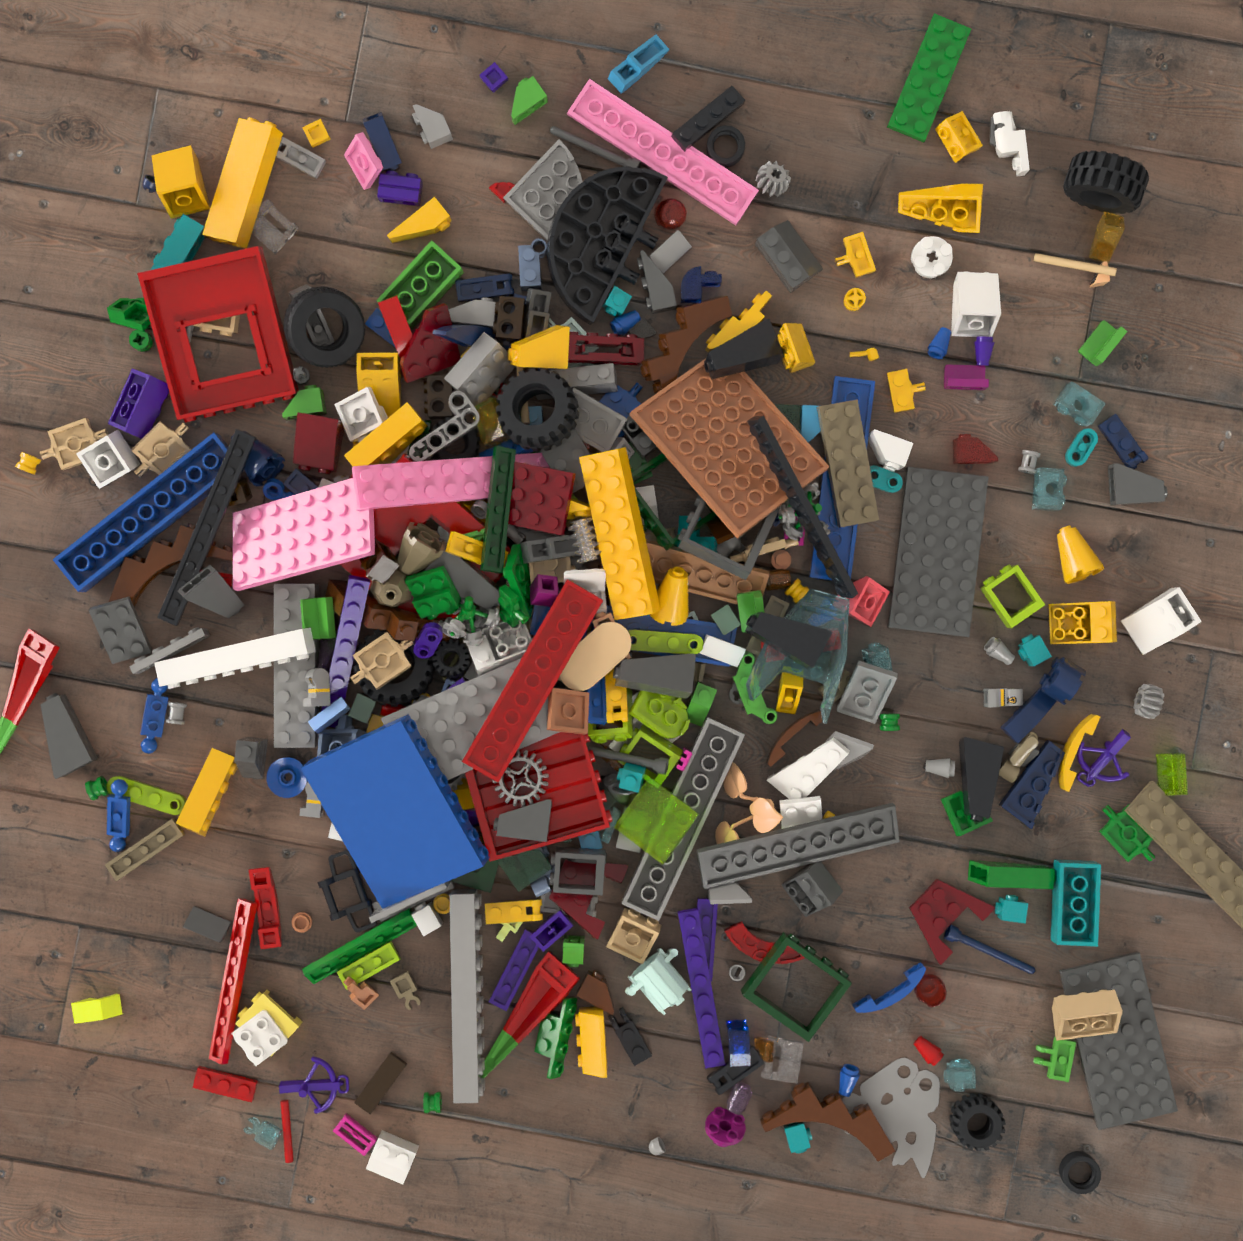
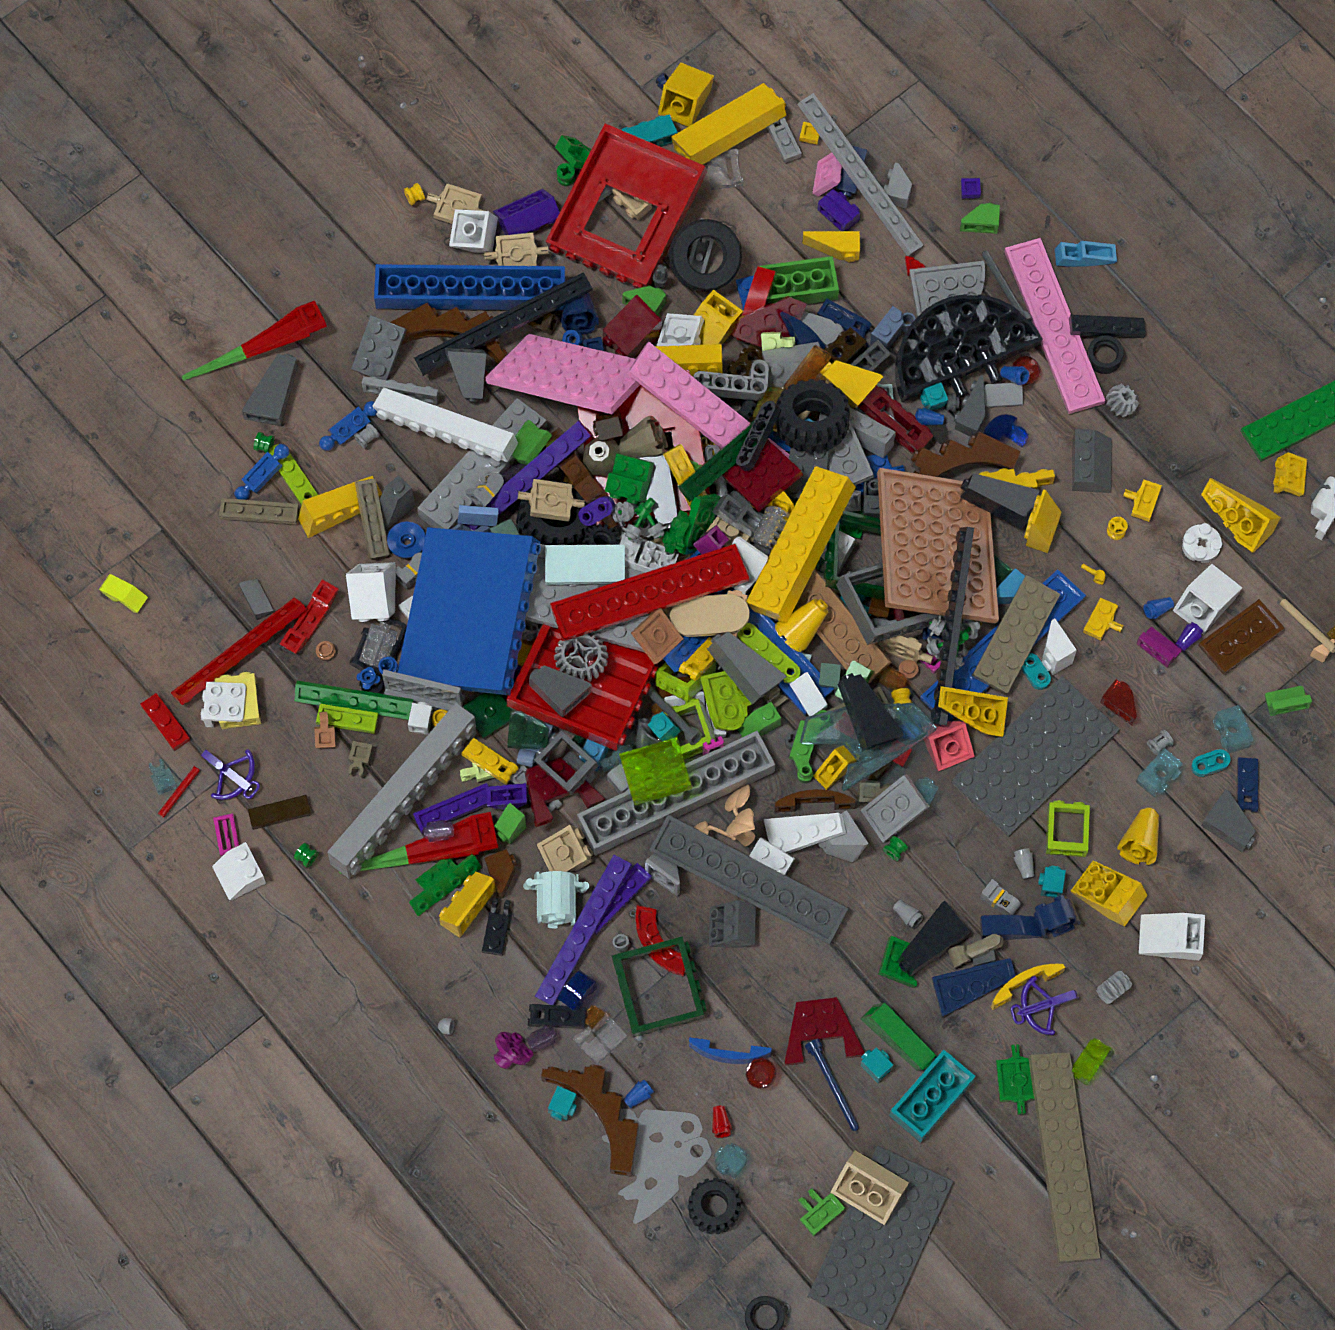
camera: 35 degrees right, 20 degrees down
(244, 786) = (371, 518): none -> dark tan plate
(297, 847) = (372, 591): none -> white slope
(343, 891) = (378, 643): none -> clear brick
(352, 925) = (368, 672): none -> blue plate
(367, 904) = (389, 664): none -> blue cone
(392, 143) = (860, 174): none -> light grey plate
(446, 359) = (774, 340): none -> yellowish green plate
(459, 698) = (584, 564): none -> light aqua tile
(497, 367) = (810, 366): none -> clear orange plate
(513, 468) = (767, 415): none -> black beam
(521, 1002) = (438, 830): none -> clear purple brick
(635, 292) = (953, 402): none -> dark grey plate
(669, 227) = (1015, 374): none -> blue cone
(869, 557) = (977, 709): none -> yellow wedge
(1025, 316) = (1241, 636): none -> reddish brown plate

